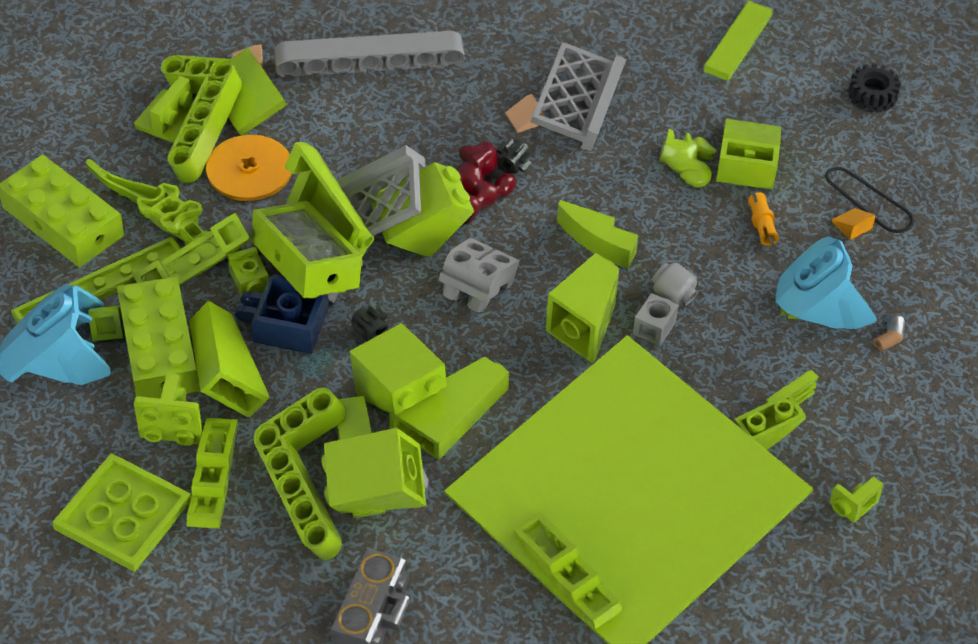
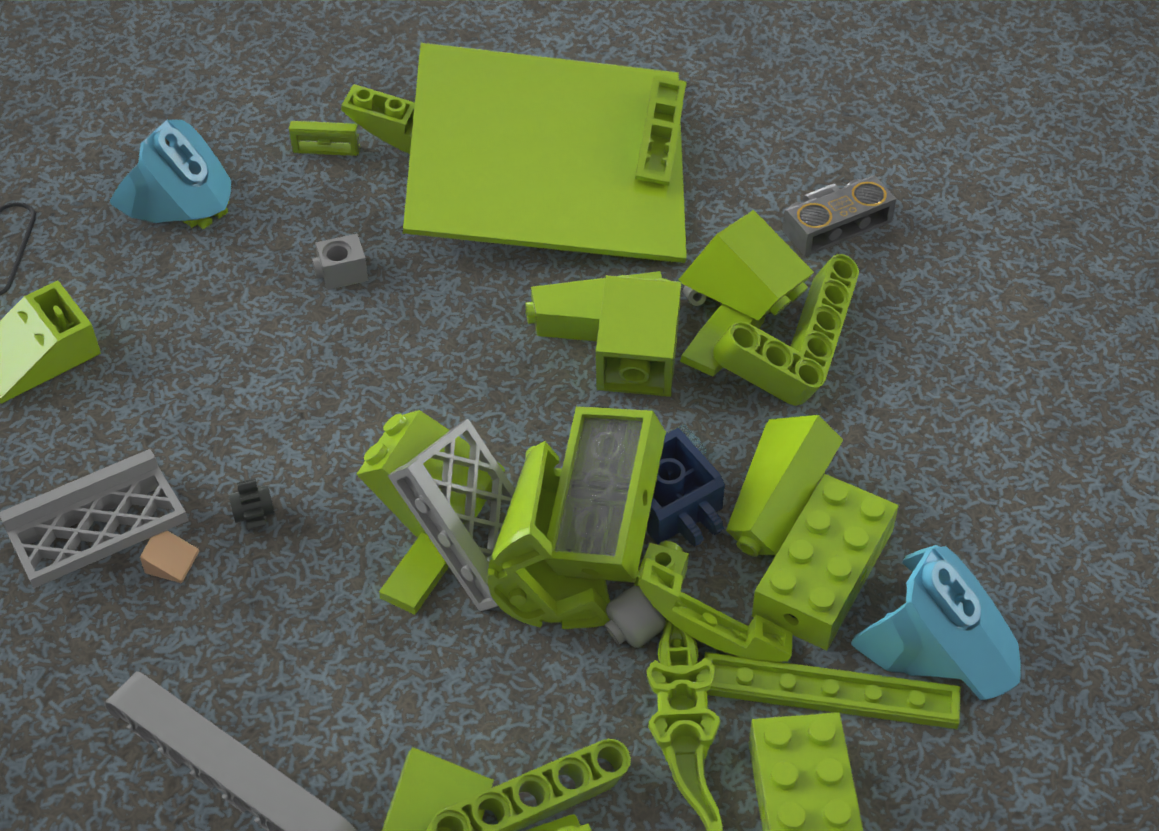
camera: 135 degrees left, 0 degrees up
(106, 323) = (861, 618): lime tile -> none
(122, 512) = (995, 423): lime plate -> none
(169, 416) = (888, 453): lime bracket -> none
(212, 473) = (882, 400): lime slope -> none
(230, 178) = (495, 726): light orange piece -> none
(476, 273) = (445, 392): light grey hips -> none
(478, 163) = (319, 503): dark red animal -> none
(583, 306) = (389, 292): lime slope -> none
(598, 233) = (281, 367): lime slope -> none
(675, 283) = (284, 275): light grey head -> none
(684, 155) = (96, 391): lime animal -> none
(763, 219) = (121, 284): light orange pin -> none
(854, 222) = (53, 230): light orange slope -> none
(858, 502) = (380, 47): lime bracket -> none

